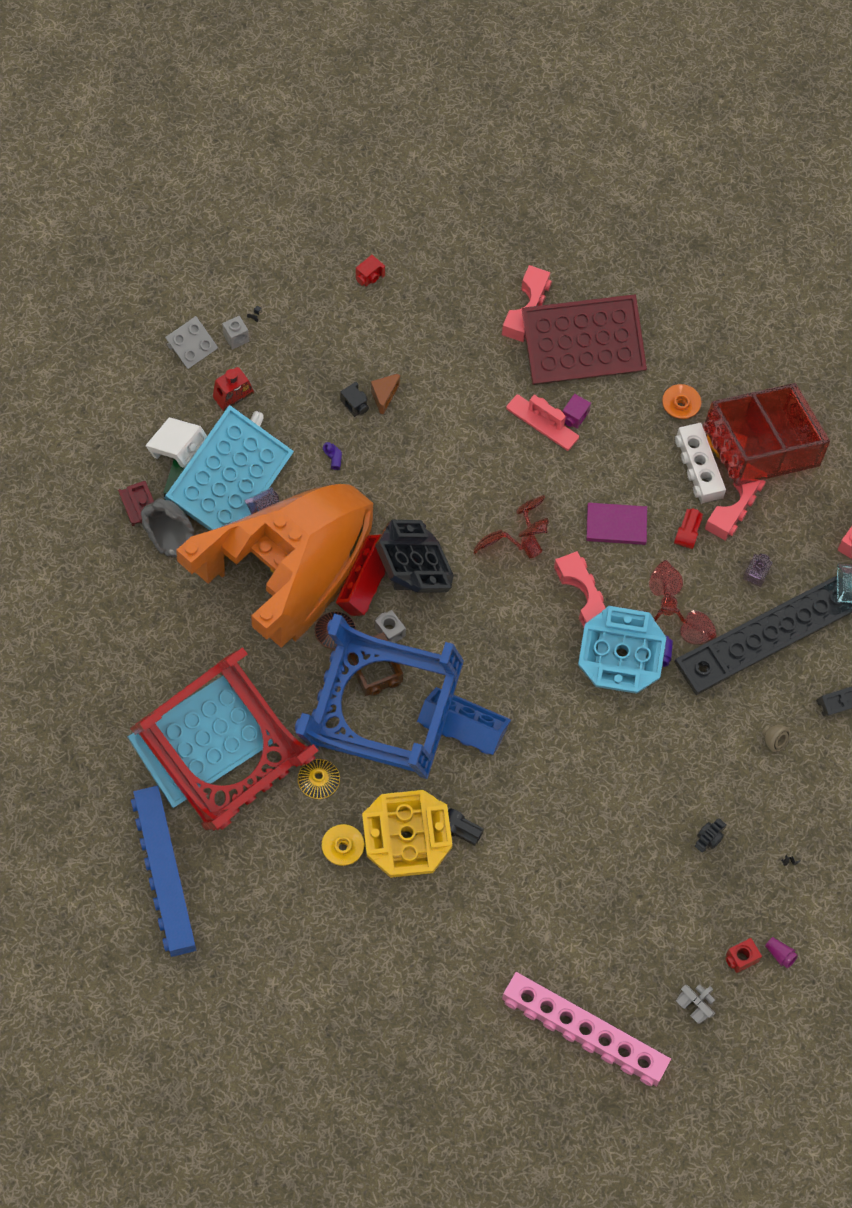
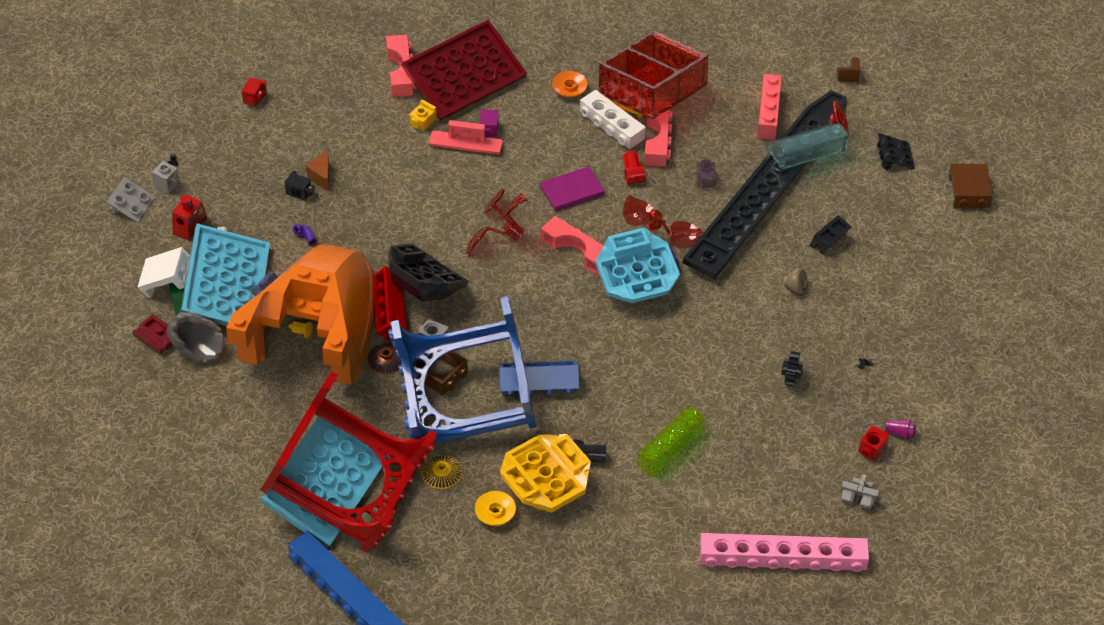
camera: 25 degrees left, 15 degrees down
(515, 378) = (422, 115): none -> yellow brick
(547, 855) = (670, 441): none -> clear neon green brick

